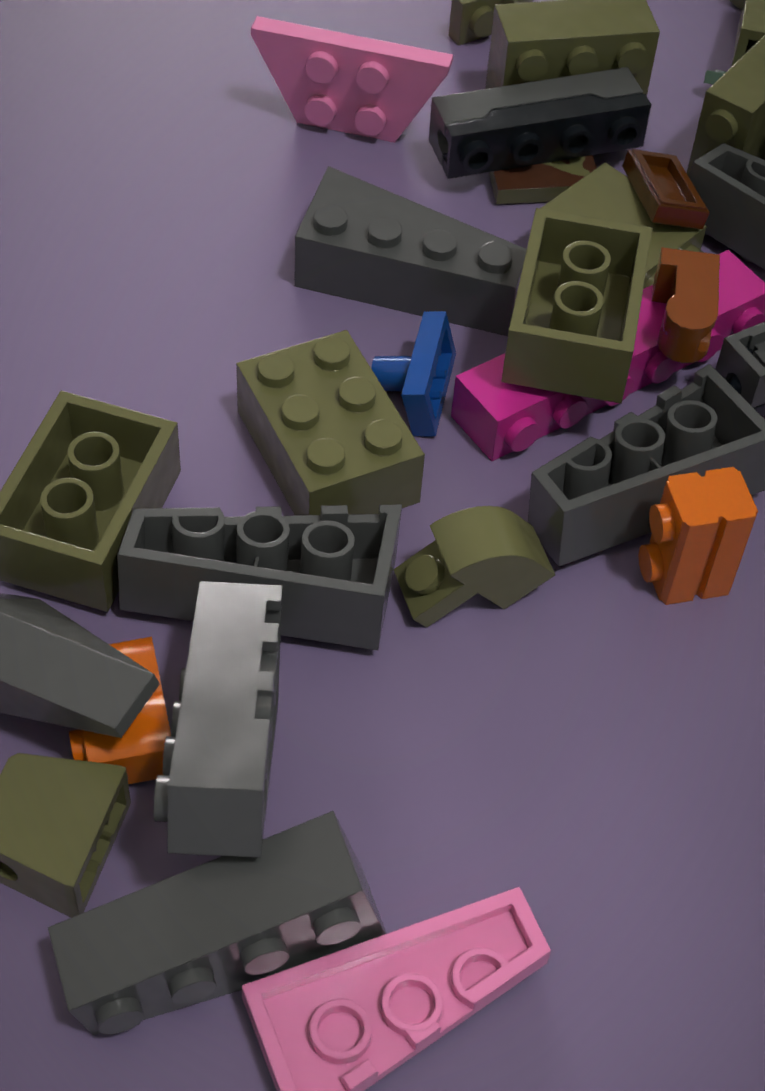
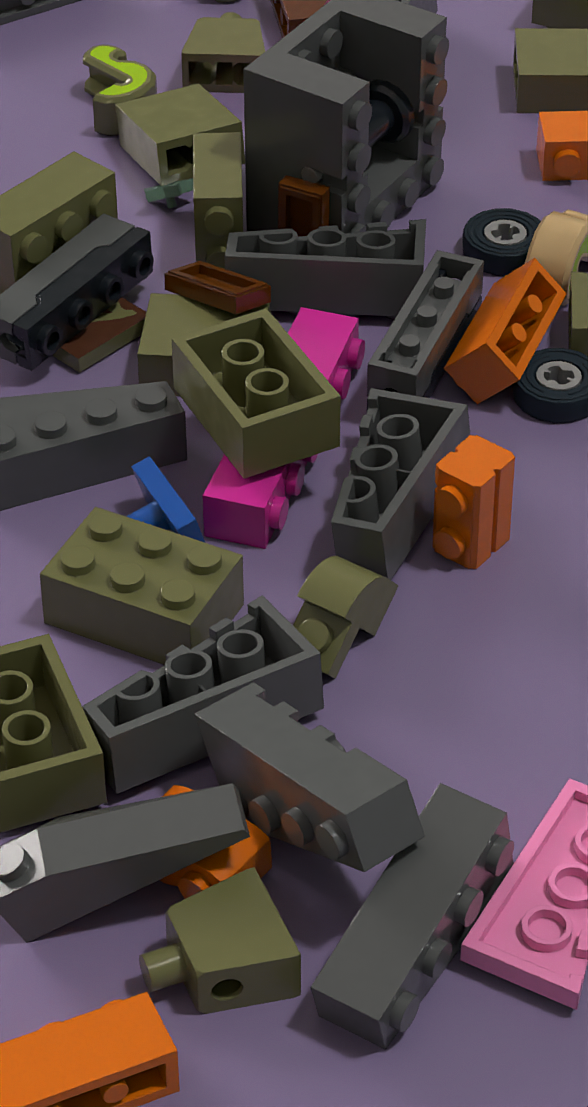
camera: 35 degrees left, 10 degrees down
(691, 290) = (327, 348): dark orange leg -> none

